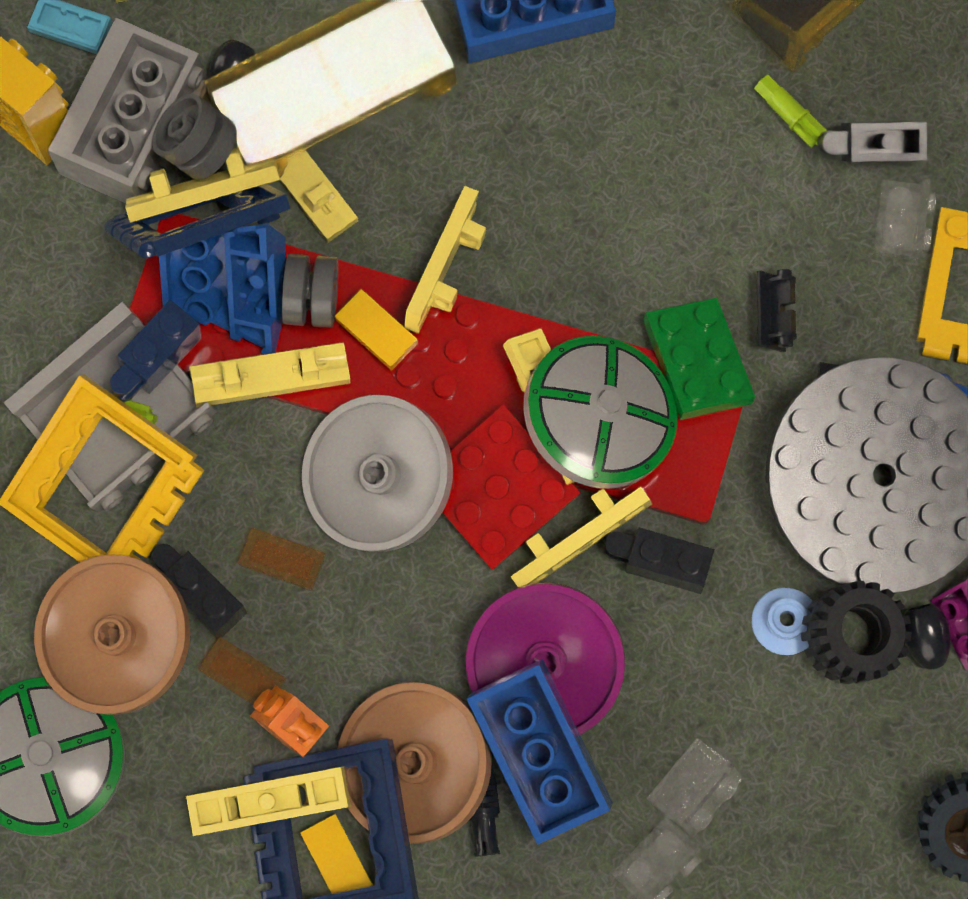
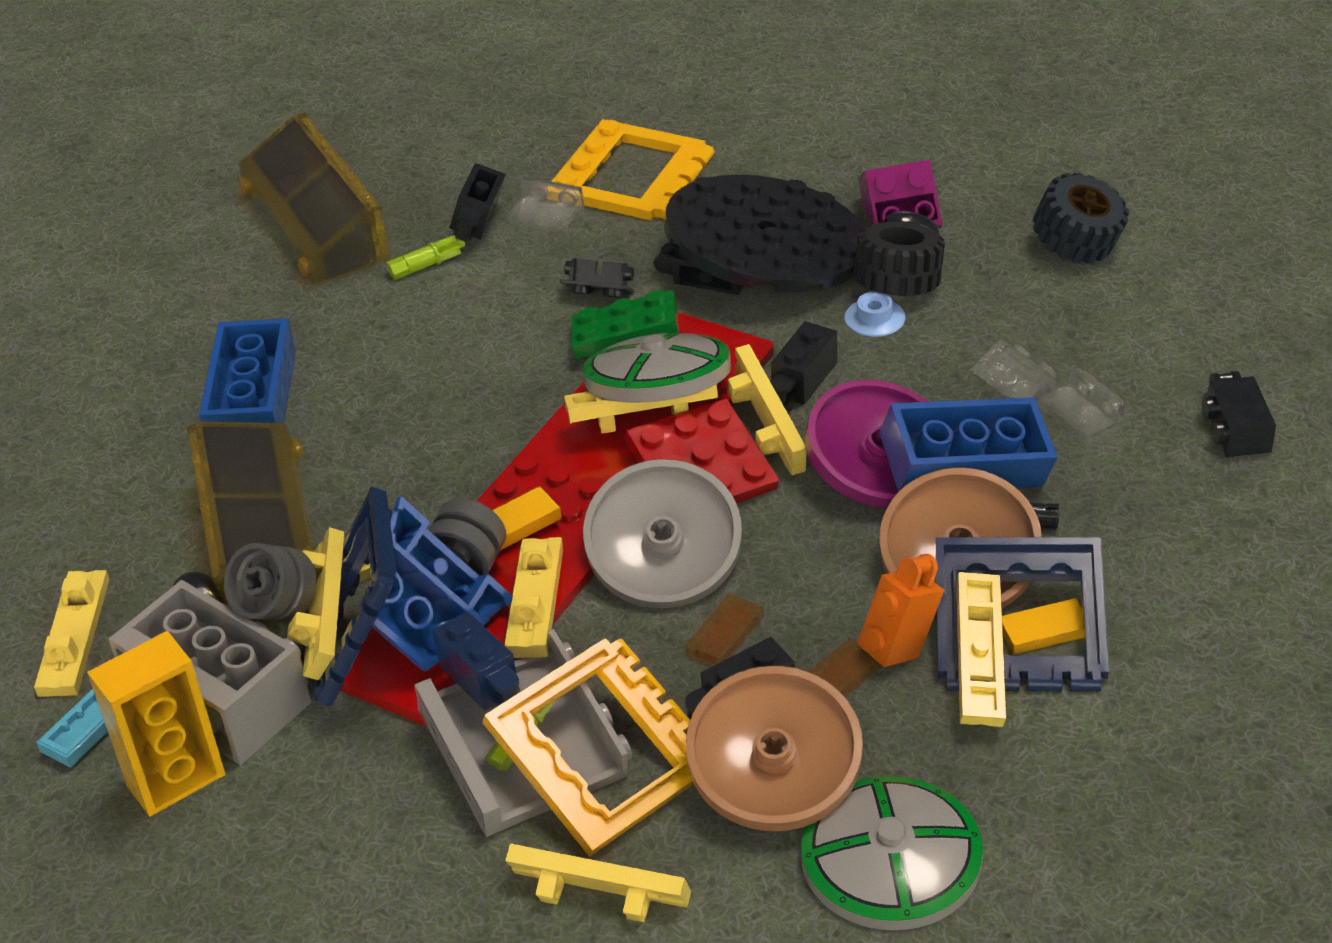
camera: 75 degrees left, 35 degrees down
(430, 288) = (469, 464): light yellow hinge -> none

